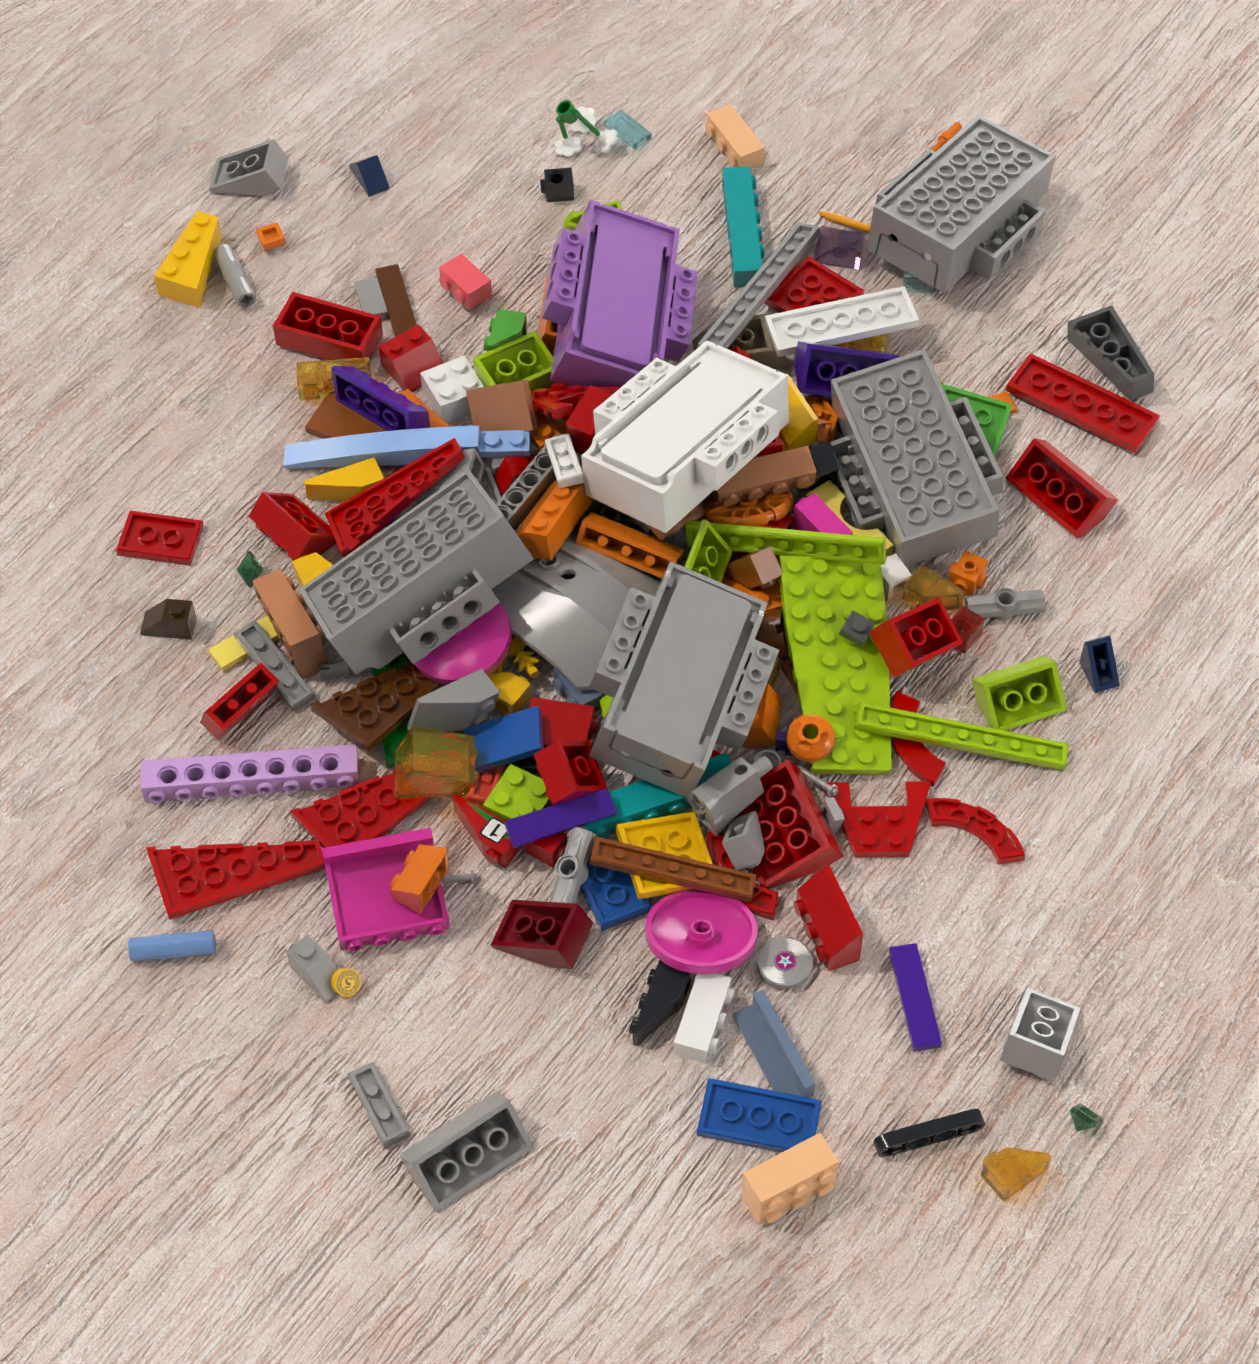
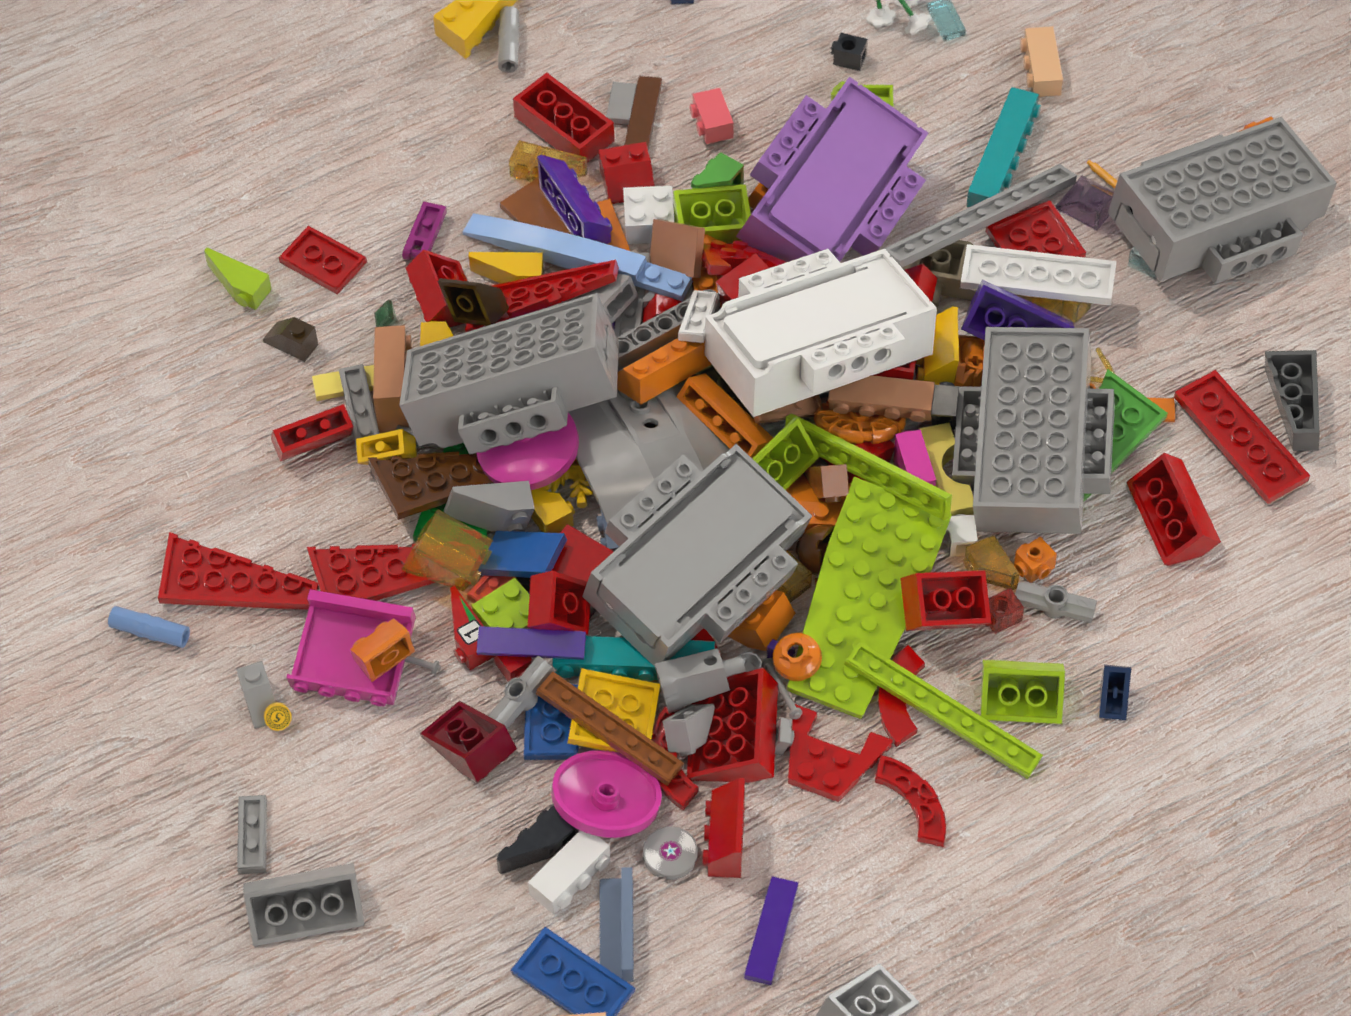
camera: 25 degrees right, 0 degrees up
(92, 585) = (243, 282): none -> lime slope
(238, 766) = (281, 491): lavender brick -> none
(246, 476) = (424, 229): none -> magenta plate
(270, 236) = (560, 13): orange plate -> none
(318, 688) = (386, 445): none -> yellow slope
(339, 523) = (473, 301): none -> dark brown slope
(857, 628) = (891, 571): dark grey plate -> none

